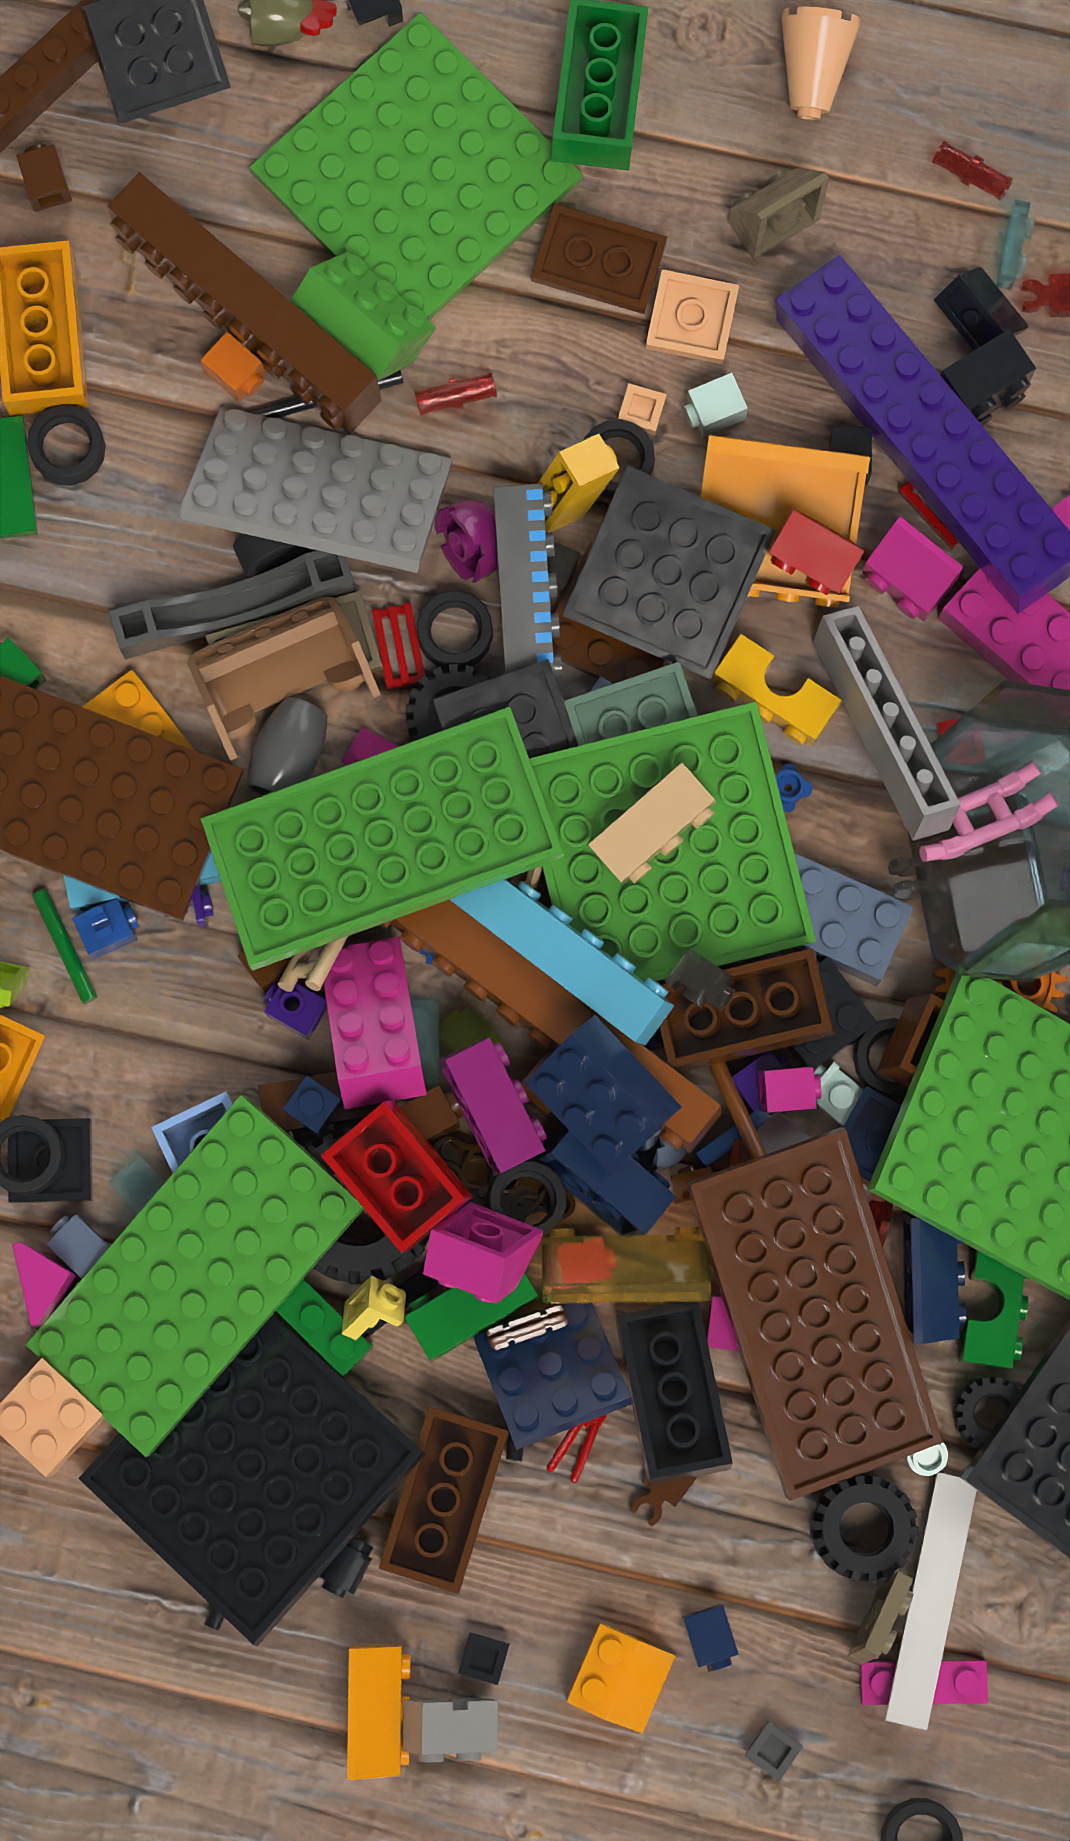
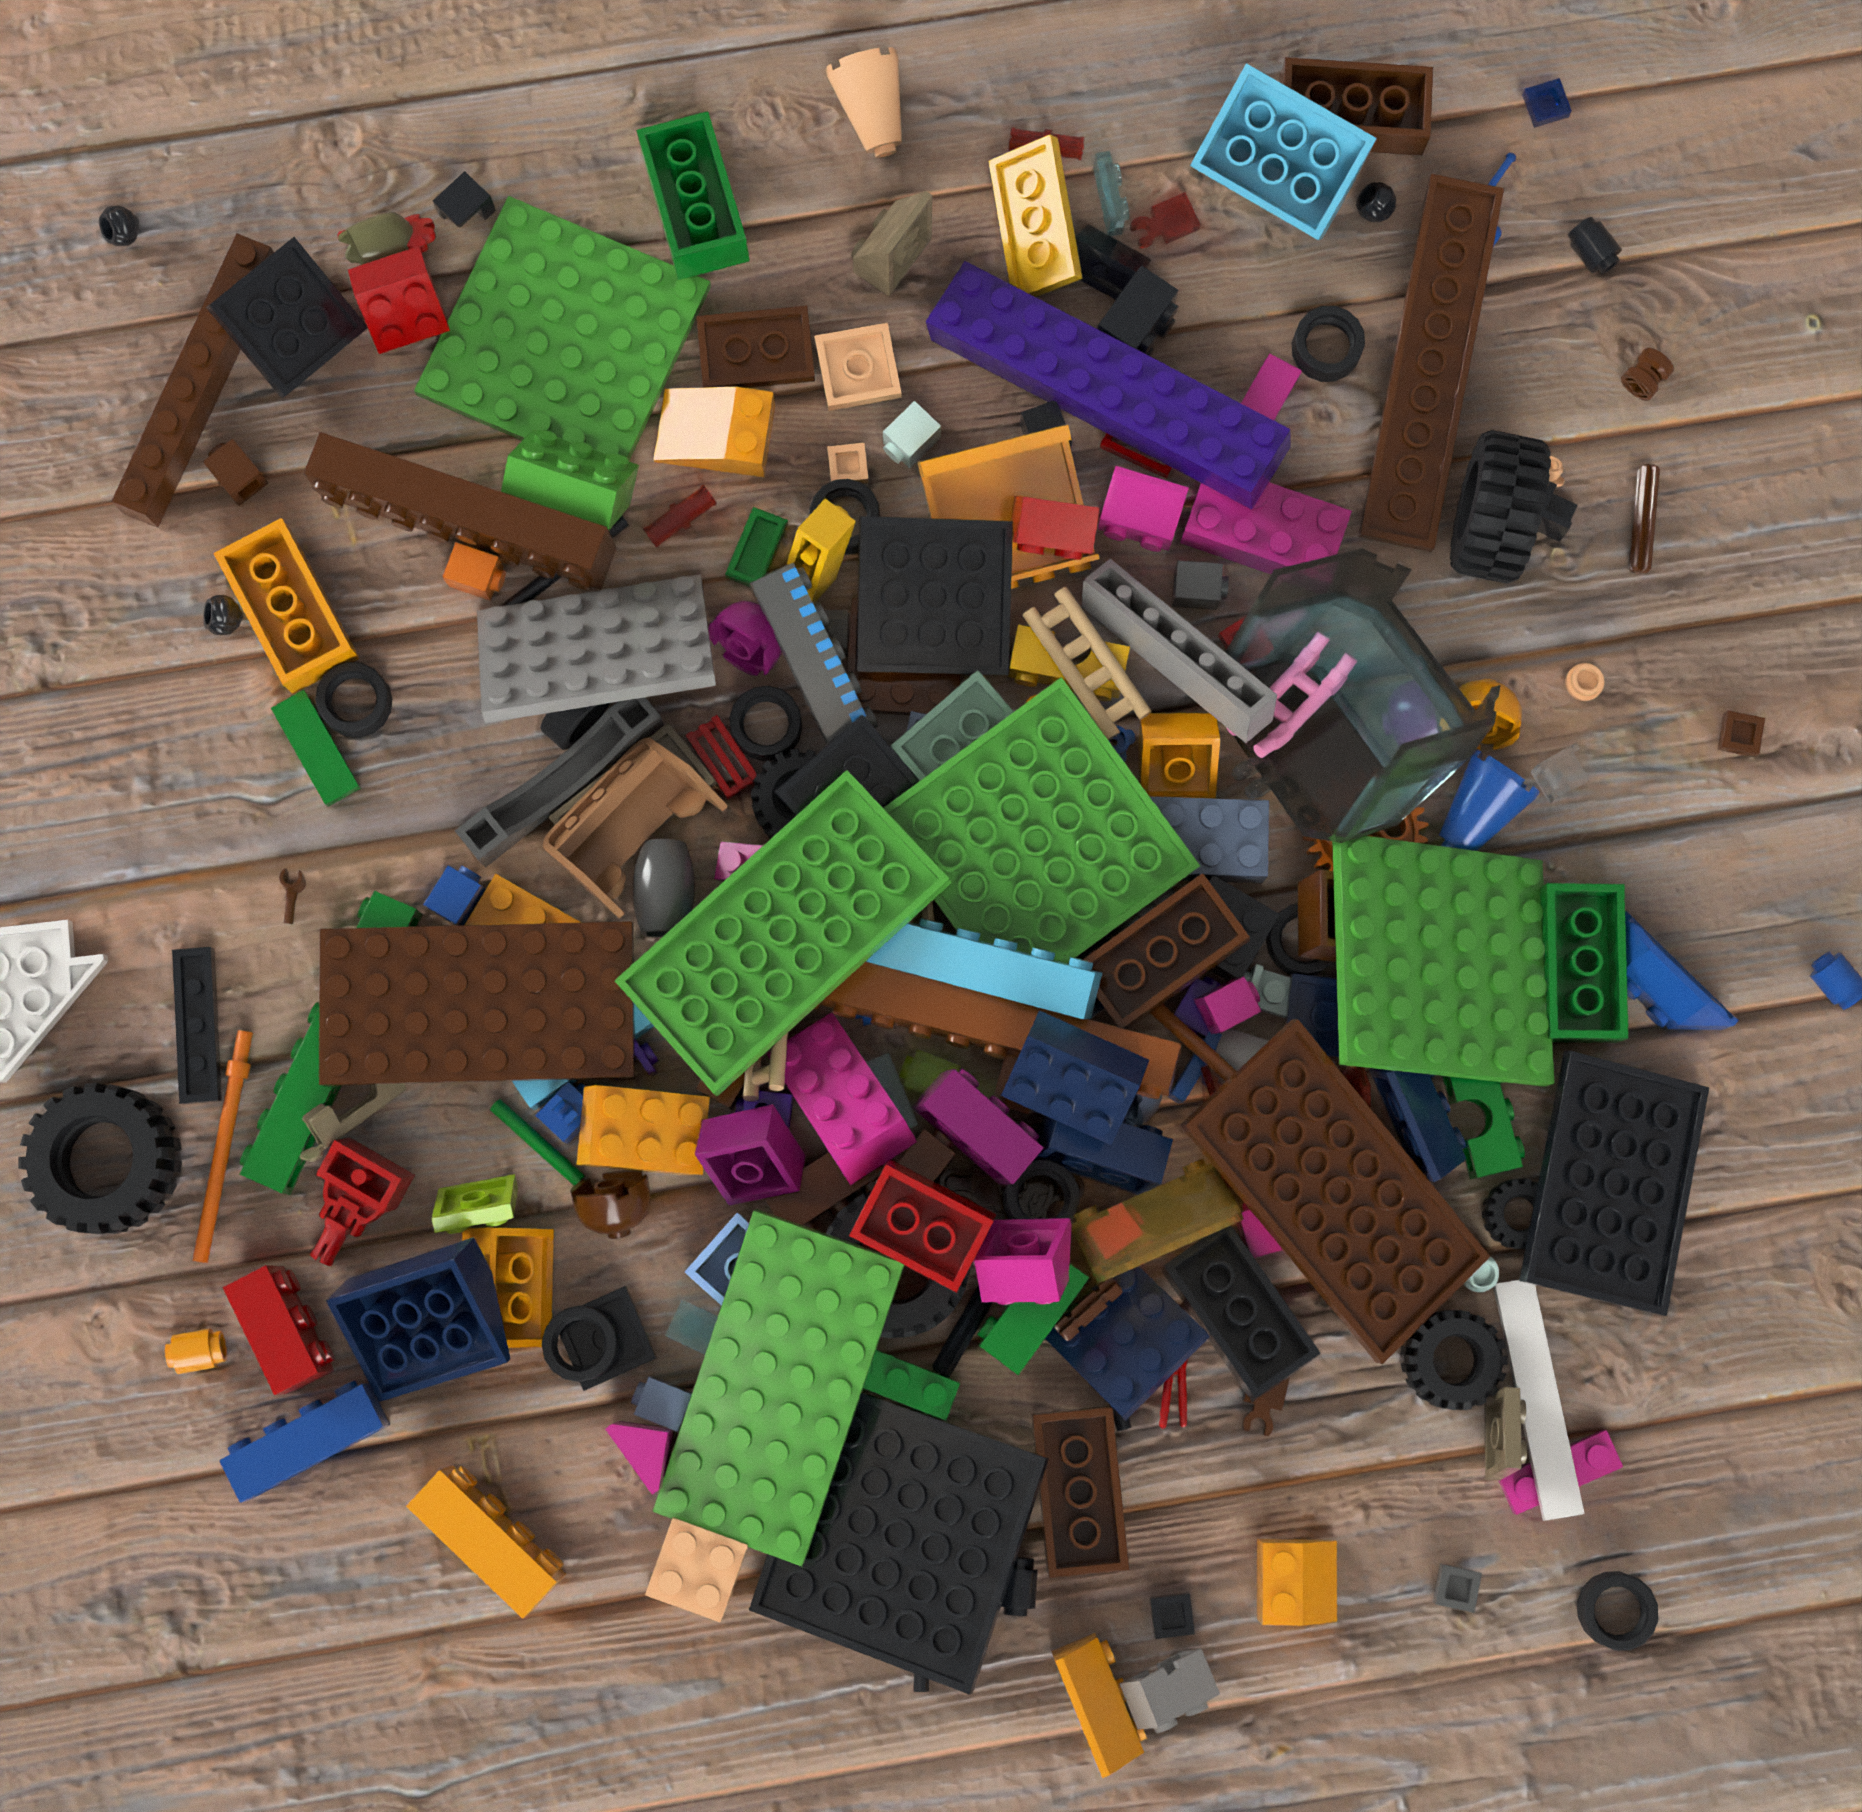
camera: 25 degrees left, 0 degrees up
(85, 674) = (455, 895): none -> blue brick
(111, 1034) = (613, 1203): none -> reddish brown cylinder
(169, 975) = (641, 1130): none -> light orange brick
(261, 1041) = (750, 1155): none -> magenta brick
(270, 73) = (398, 300): none -> red brick
(313, 1106) = (820, 1193): dark blue brick -> none
(372, 1302) = (944, 1346): light yellow bracket -> none
(518, 454) = (756, 547): none -> green tile
(527, 323) = (716, 429): none -> slope
(654, 825) = (1018, 821): tan brick -> none
(685, 1175) = (1173, 1118): reddish brown plate -> none
(702, 981) = (1119, 941): clear smoke brick -> none
(711, 1637) = (1361, 1512): dark blue brick -> none
(779, 721) = (1085, 686): none -> tan bar
(845, 826) = (1179, 755): none -> light orange slope
(928, 239) = (1035, 217): none -> yellow plate
(937, 668) = (1199, 585): none -> dark grey brick

